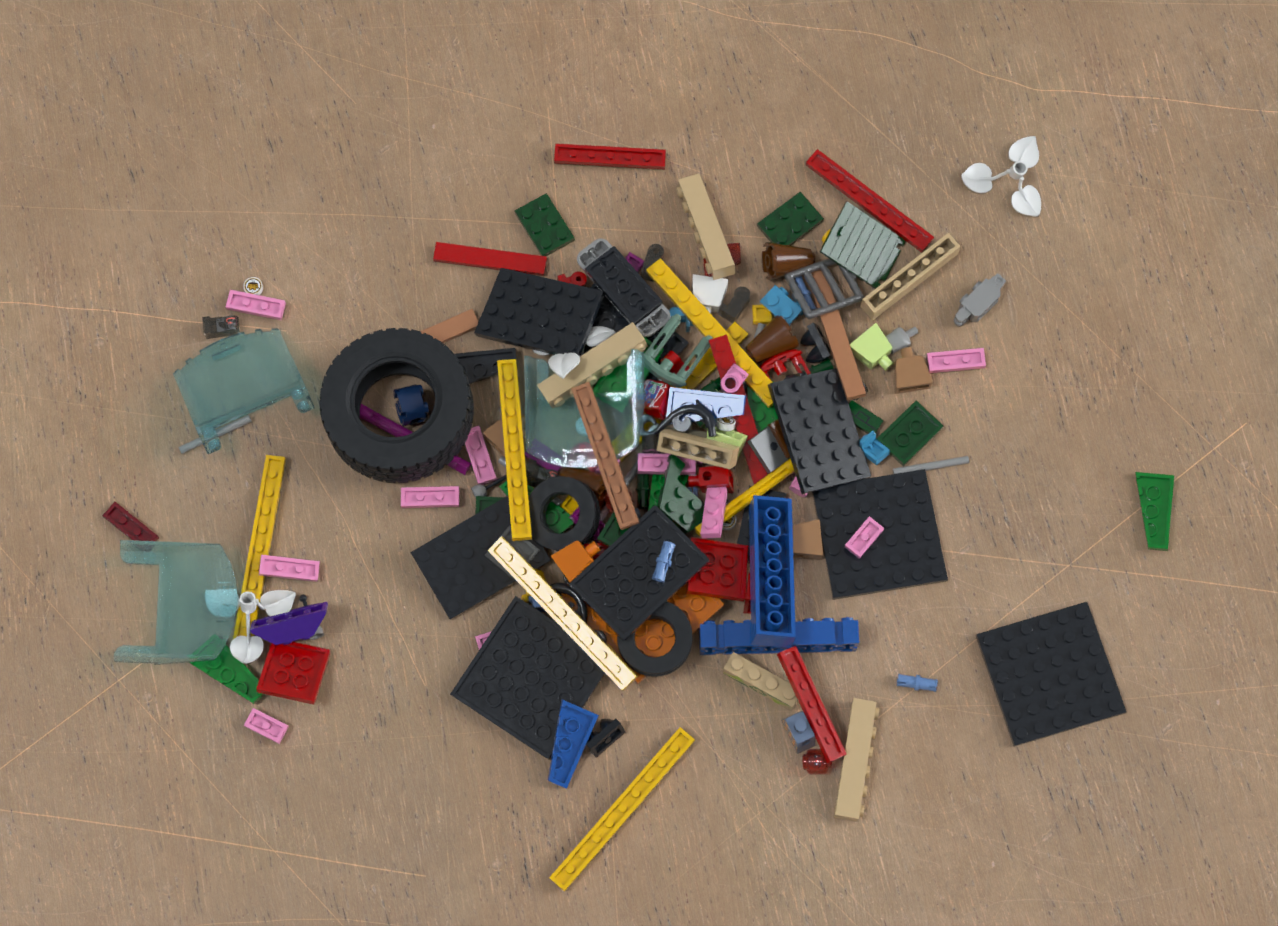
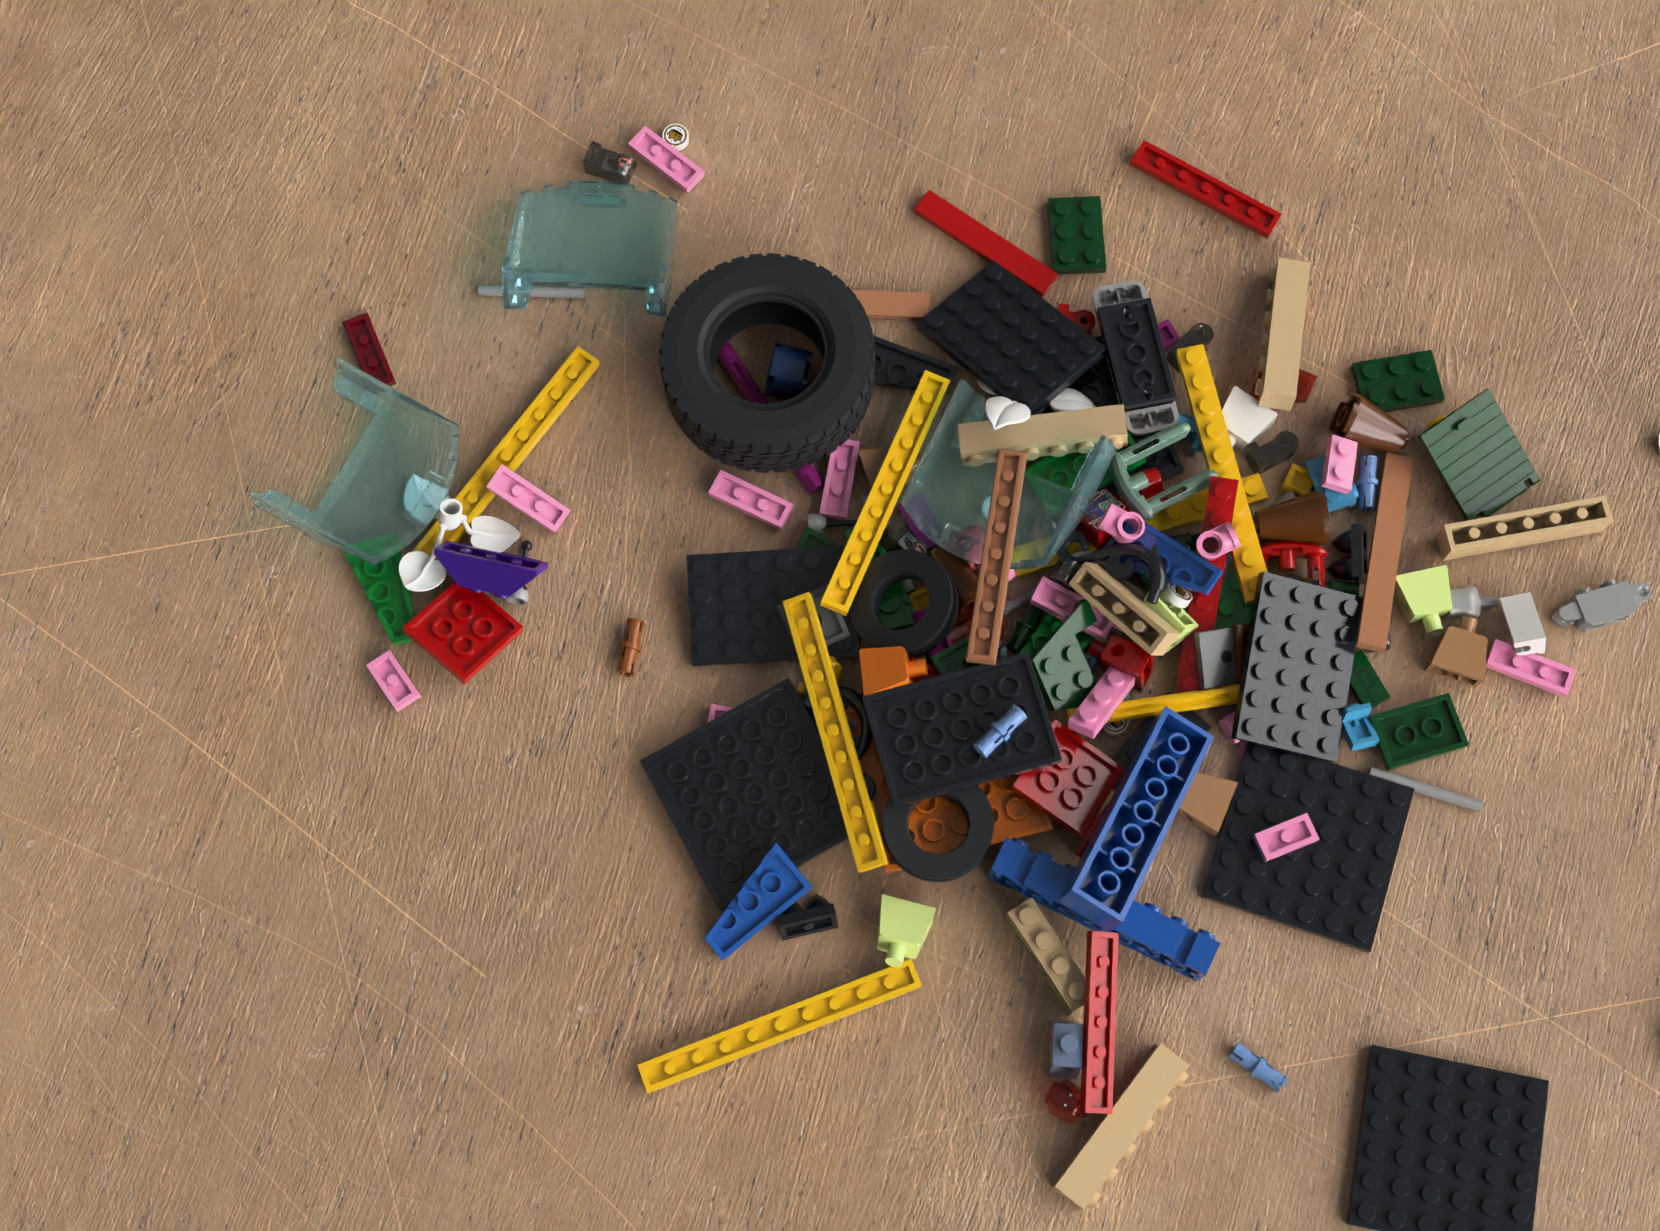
camera: 30 degrees right, 0 degrees up
(404, 628) = (630, 647): none -> dark orange pin
(664, 399) = (1112, 524): none -> bright pink piece
(665, 711) = (902, 928): none -> yellowish green torso
(781, 292) = (1339, 464): none -> bright pink plate
(825, 308) = (1388, 513): flat silver bar -> none
(869, 201) = (1518, 406): red plate -> none
(939, 335) = (1523, 623): none -> white hinge

